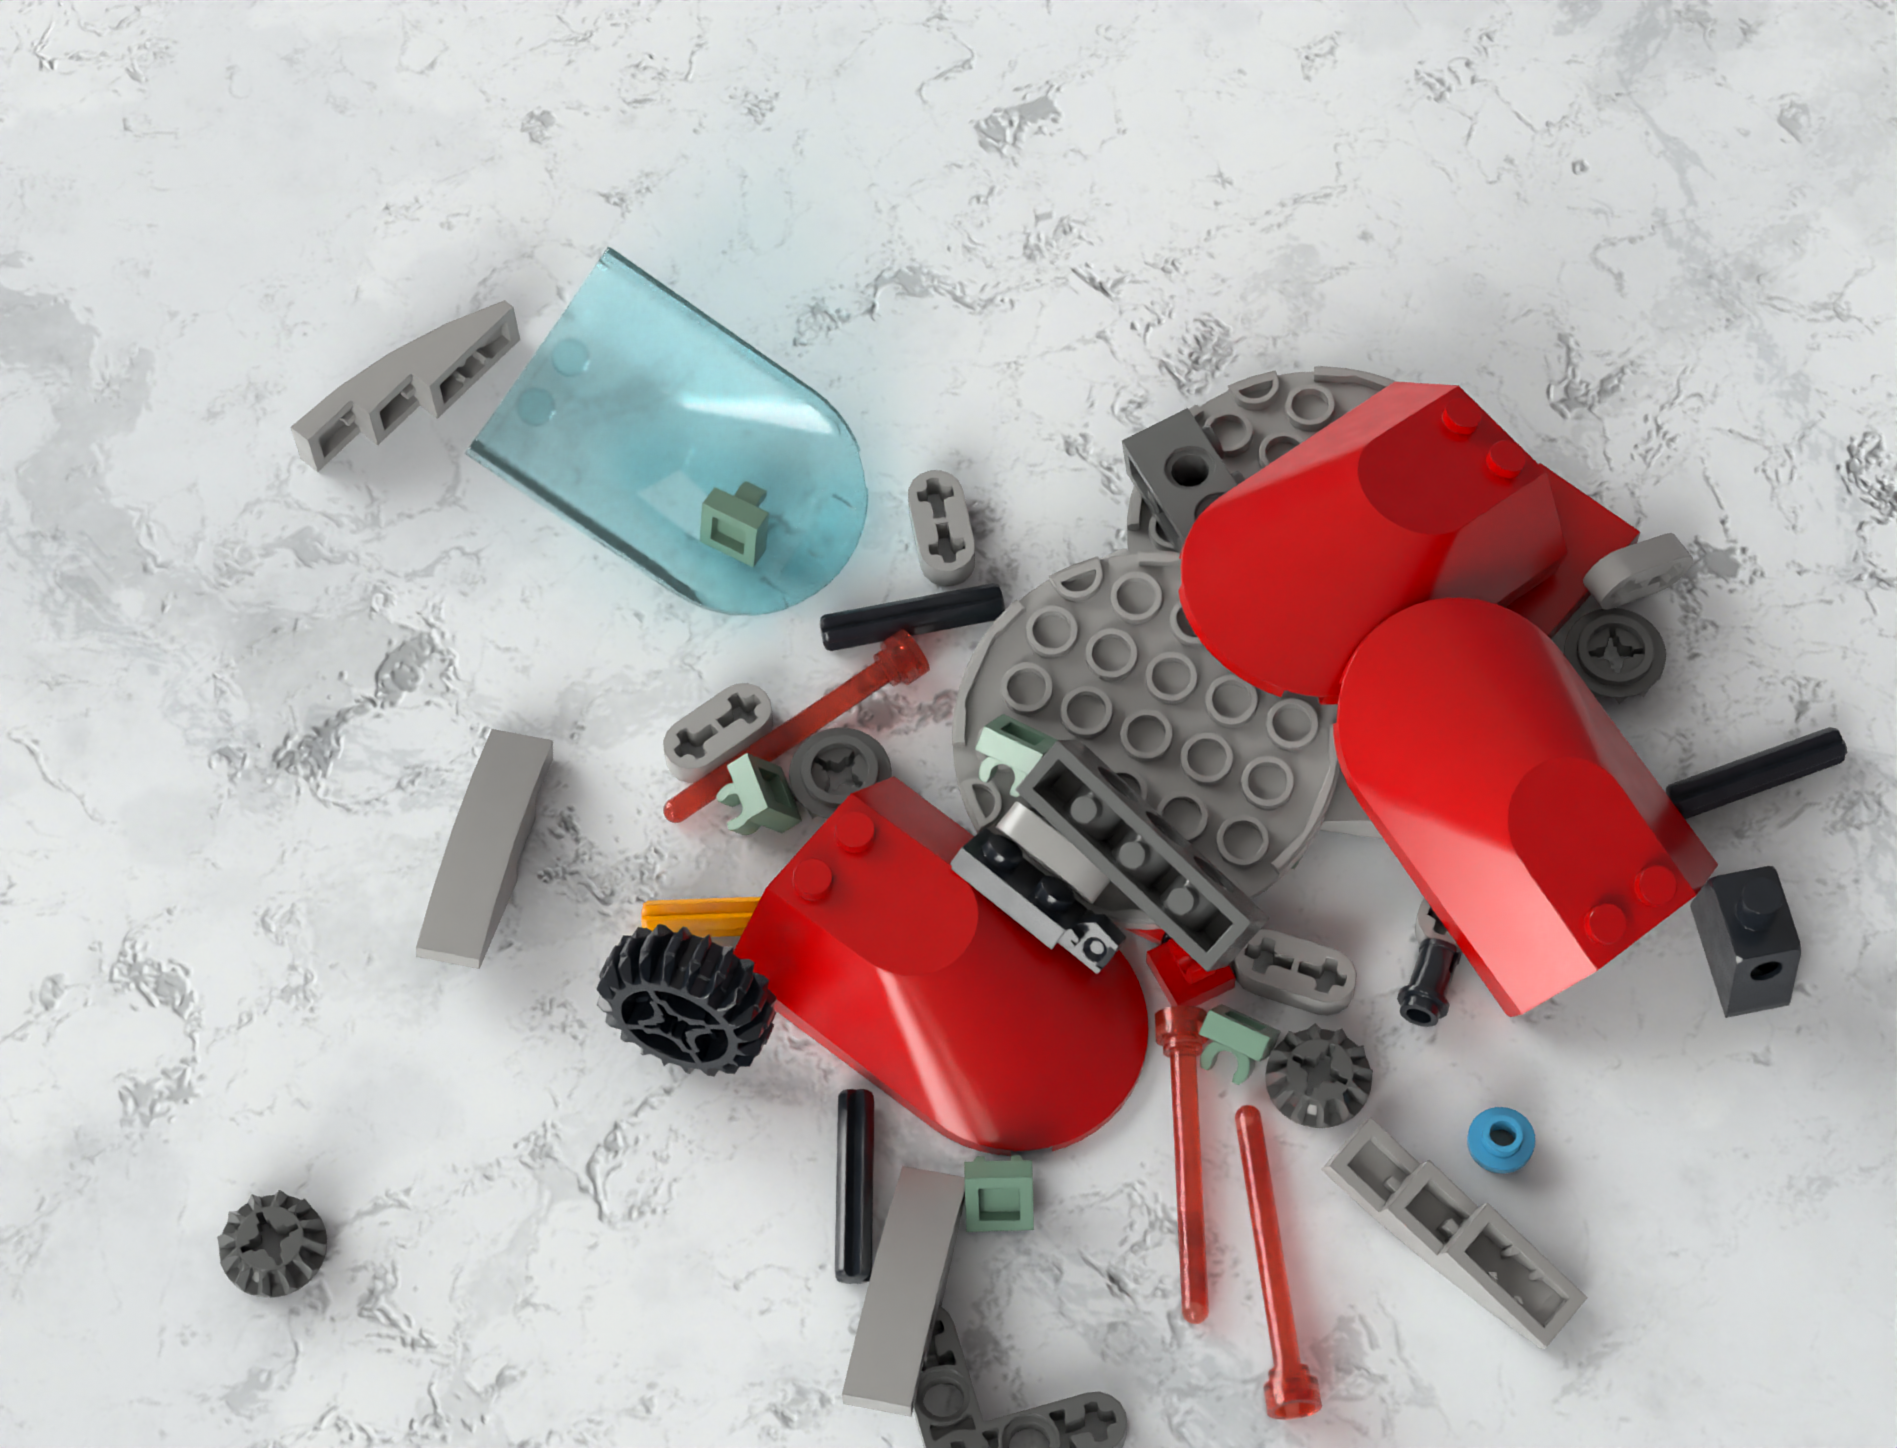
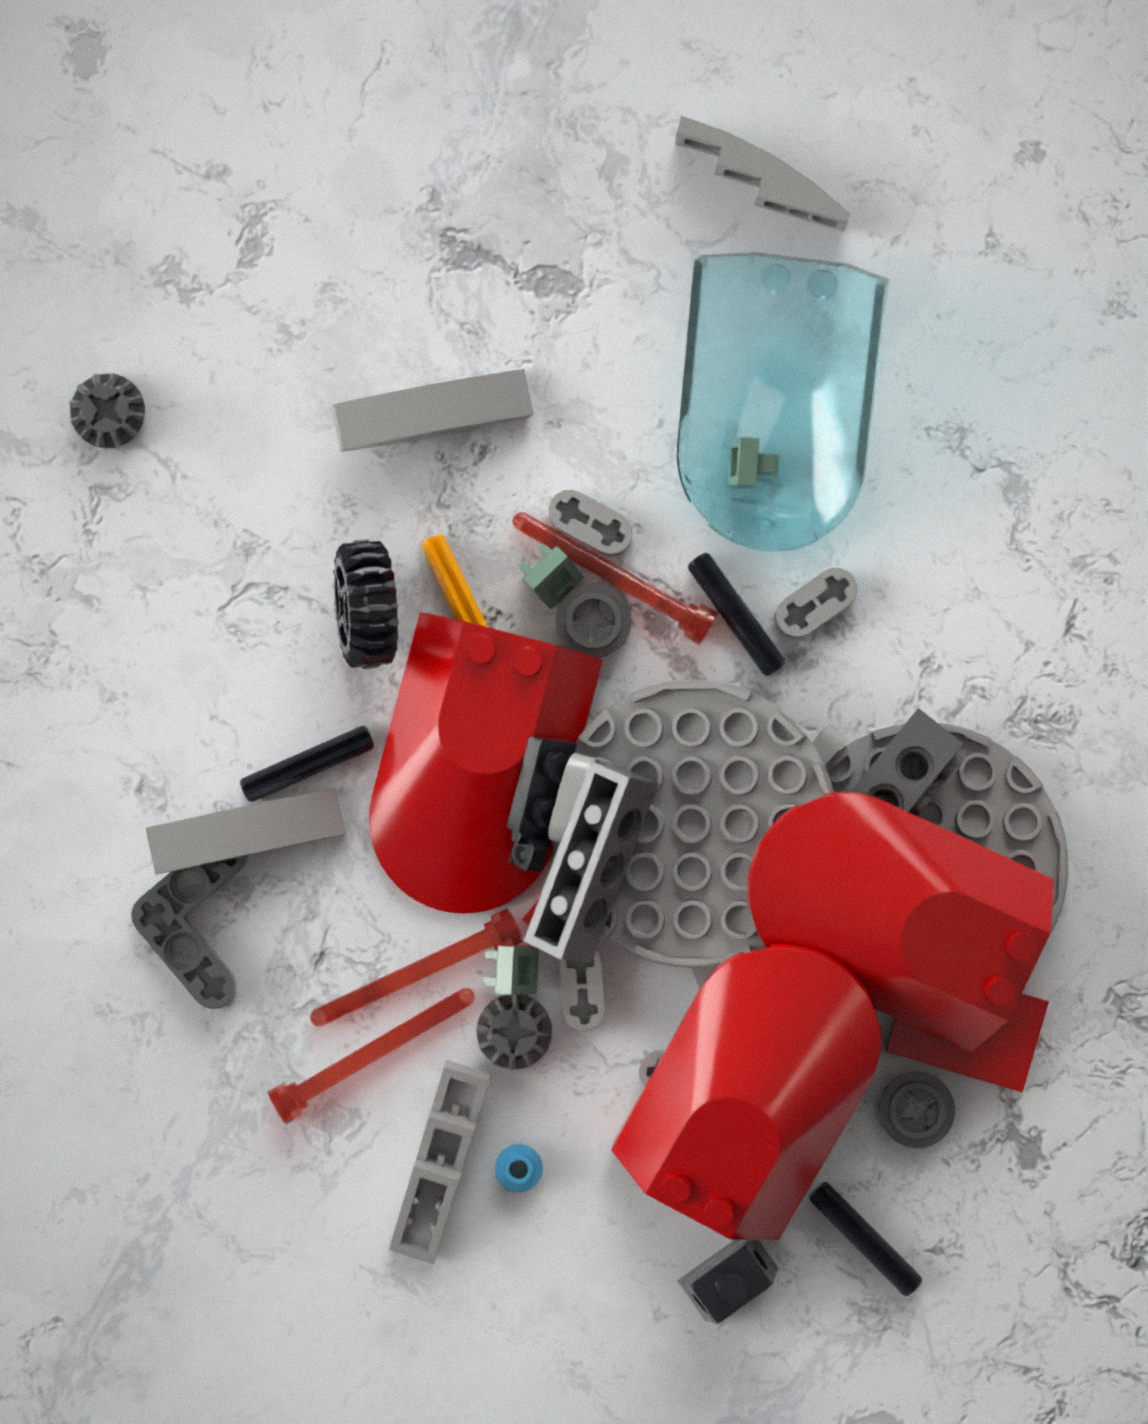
camera: 65 degrees right, 25 degrees up
(999, 1195) = (337, 861): sand green tile -> none
(1011, 744) = (634, 743): tile -> none
(1425, 996) = (610, 1079): black pin -> none
(1638, 571) = (984, 1104): light grey beam -> none

